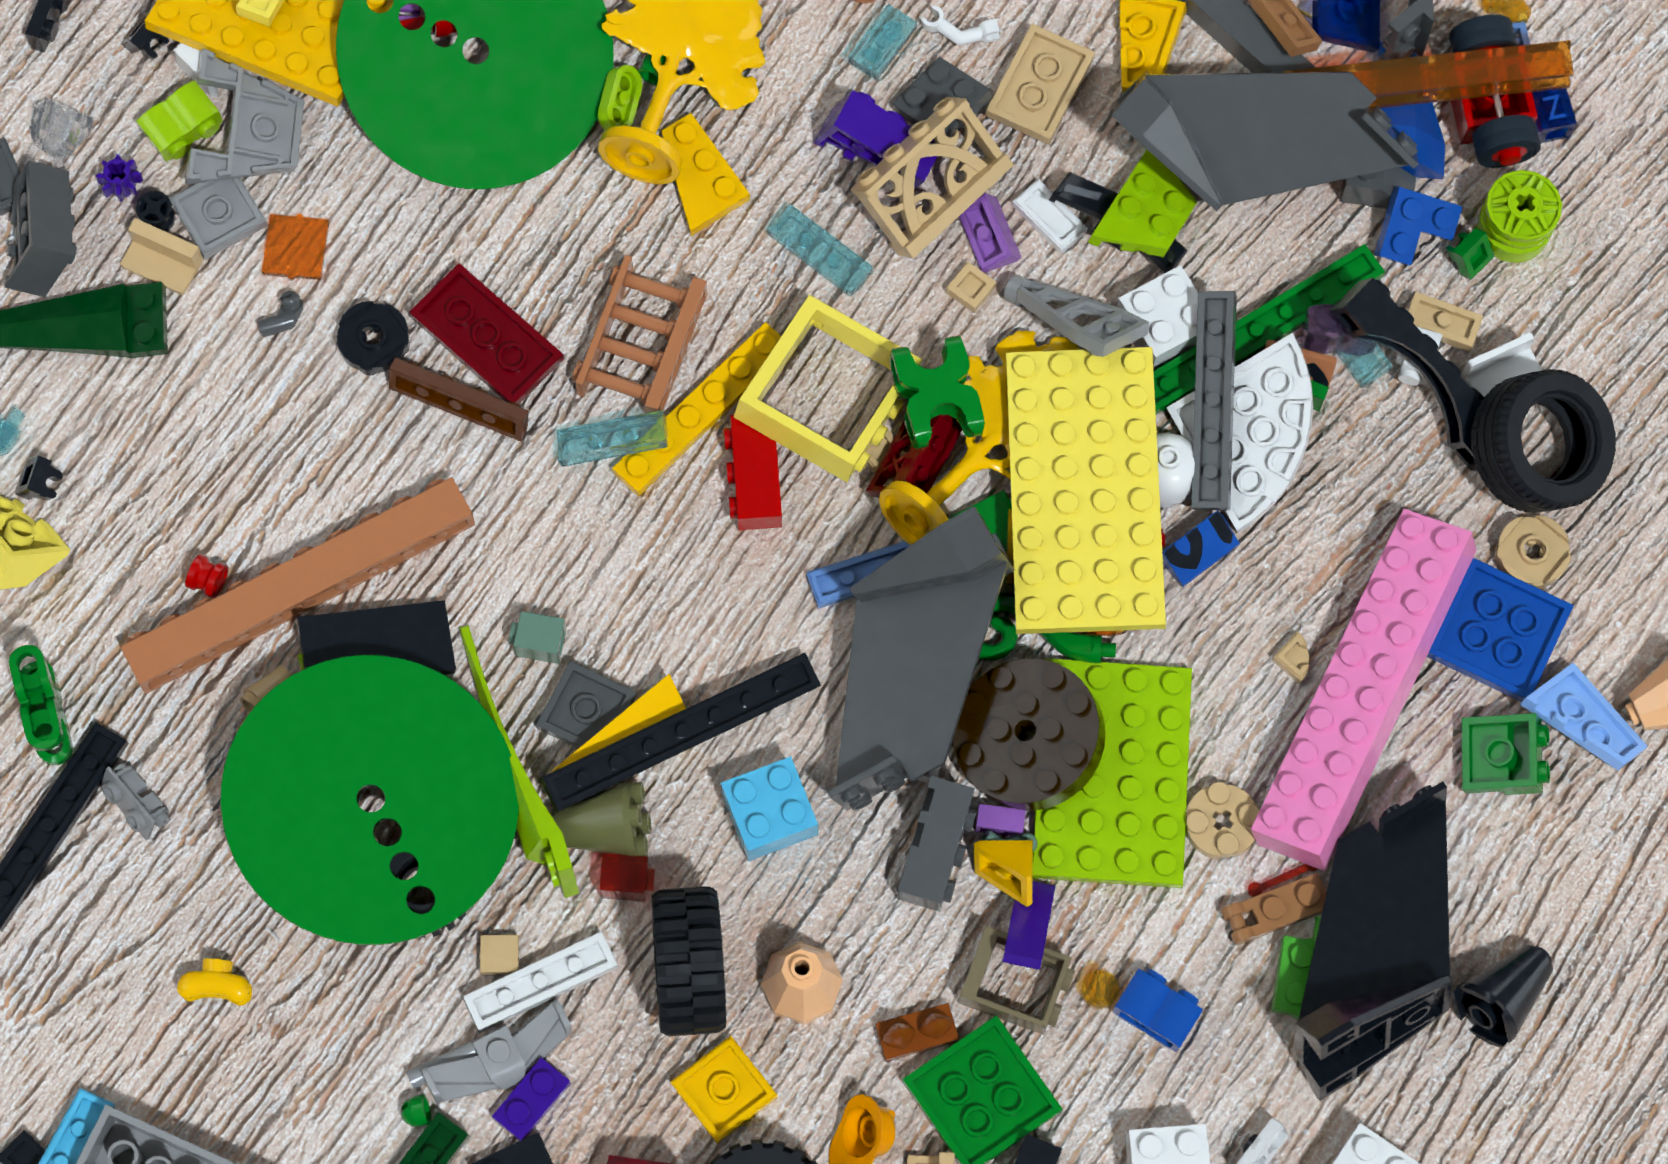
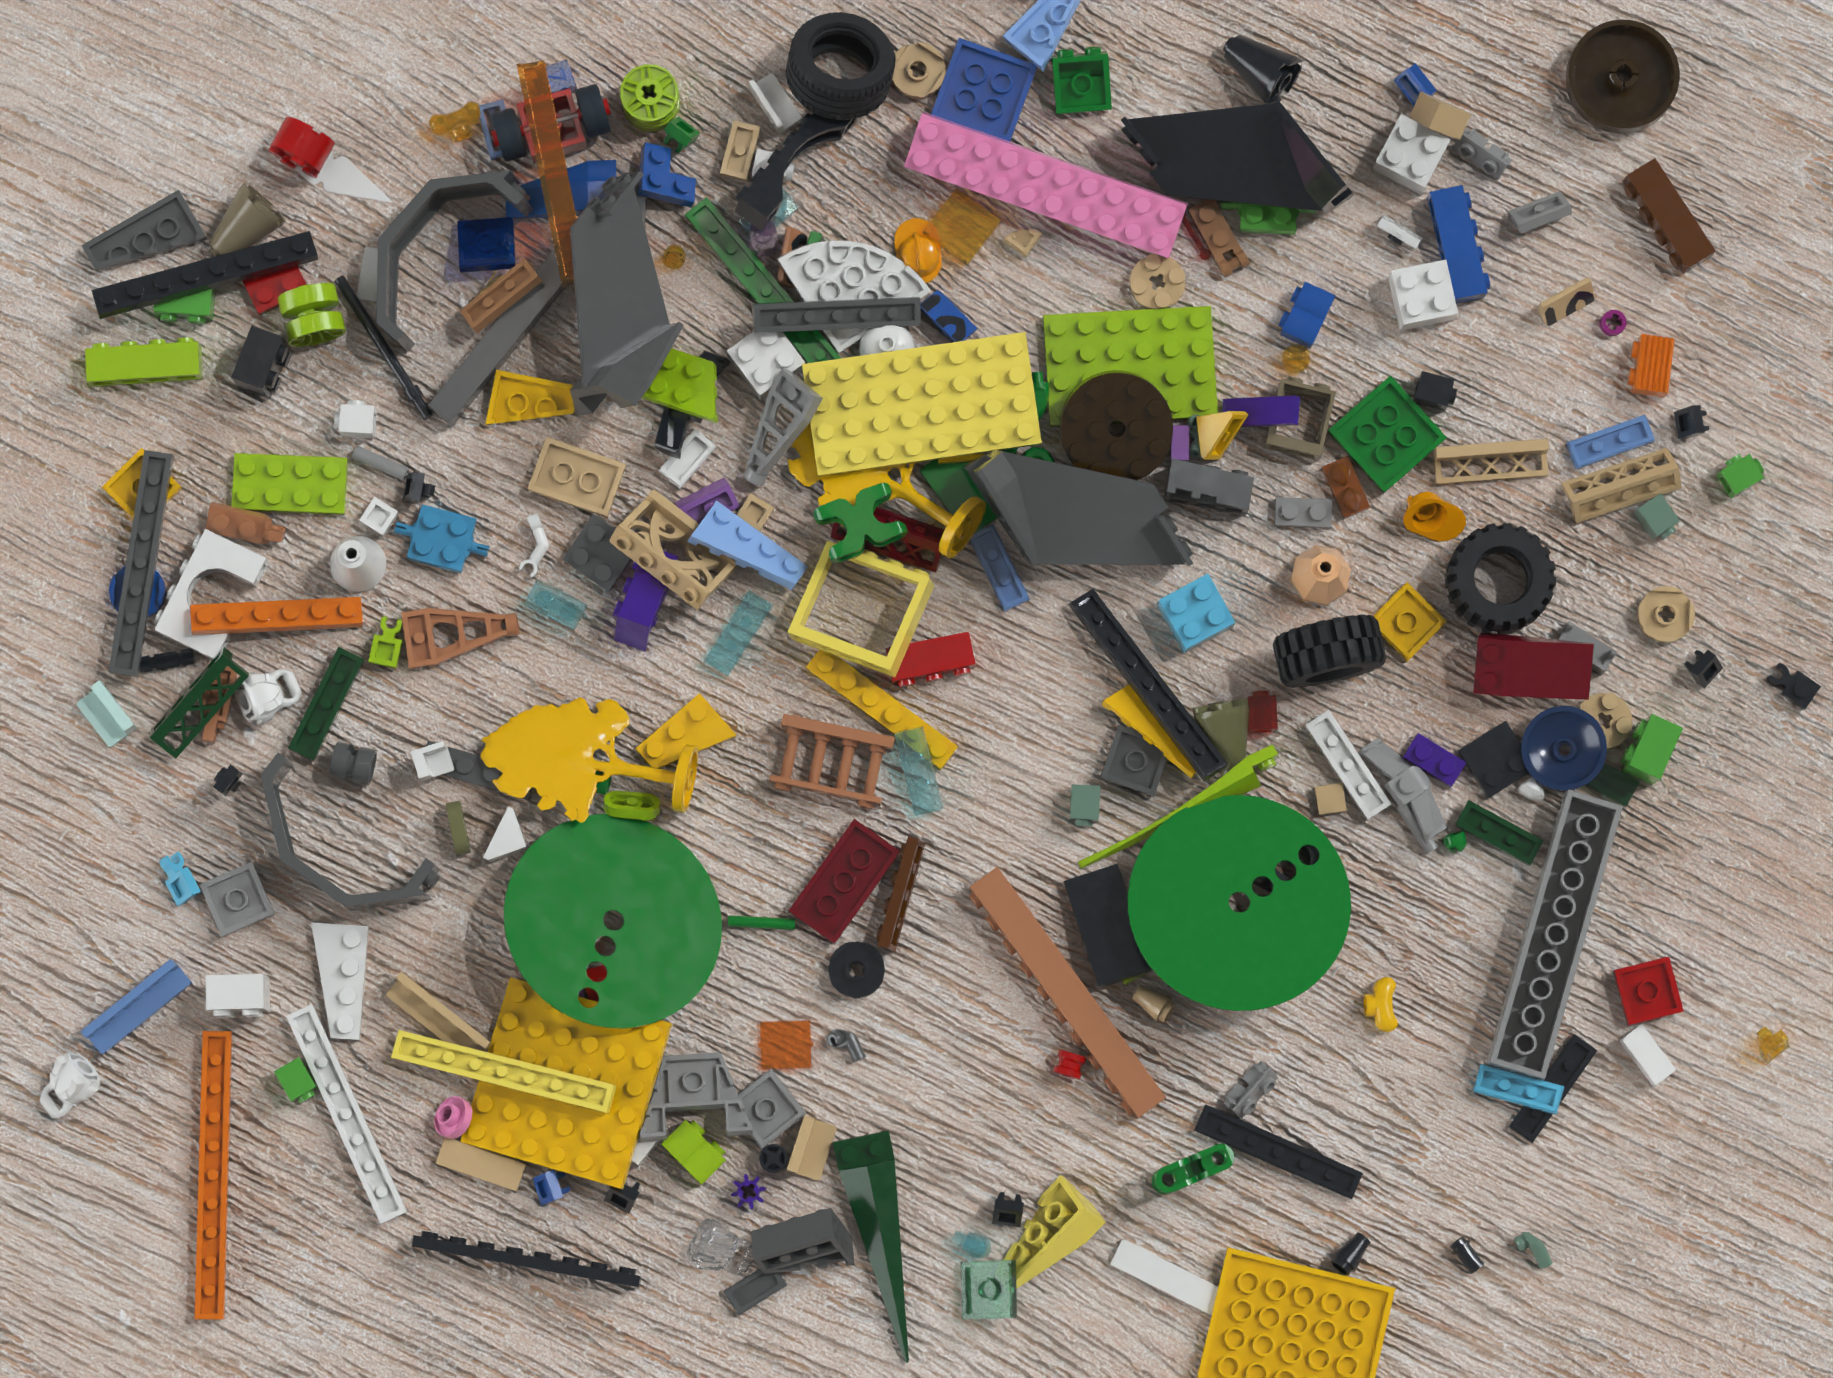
camera: 100 degrees left, 10 degrees up
(451, 234) = (761, 922): none -> green piece
(889, 971) = (1303, 513): none -> light grey plate
(937, 251) = (736, 539): none -> light blue wing
(1295, 527) = (917, 249): none -> light orange piece
(1311, 227) = (674, 257): none -> clear yellow hinge
(1319, 581) = (961, 226): none -> clear yellow tile

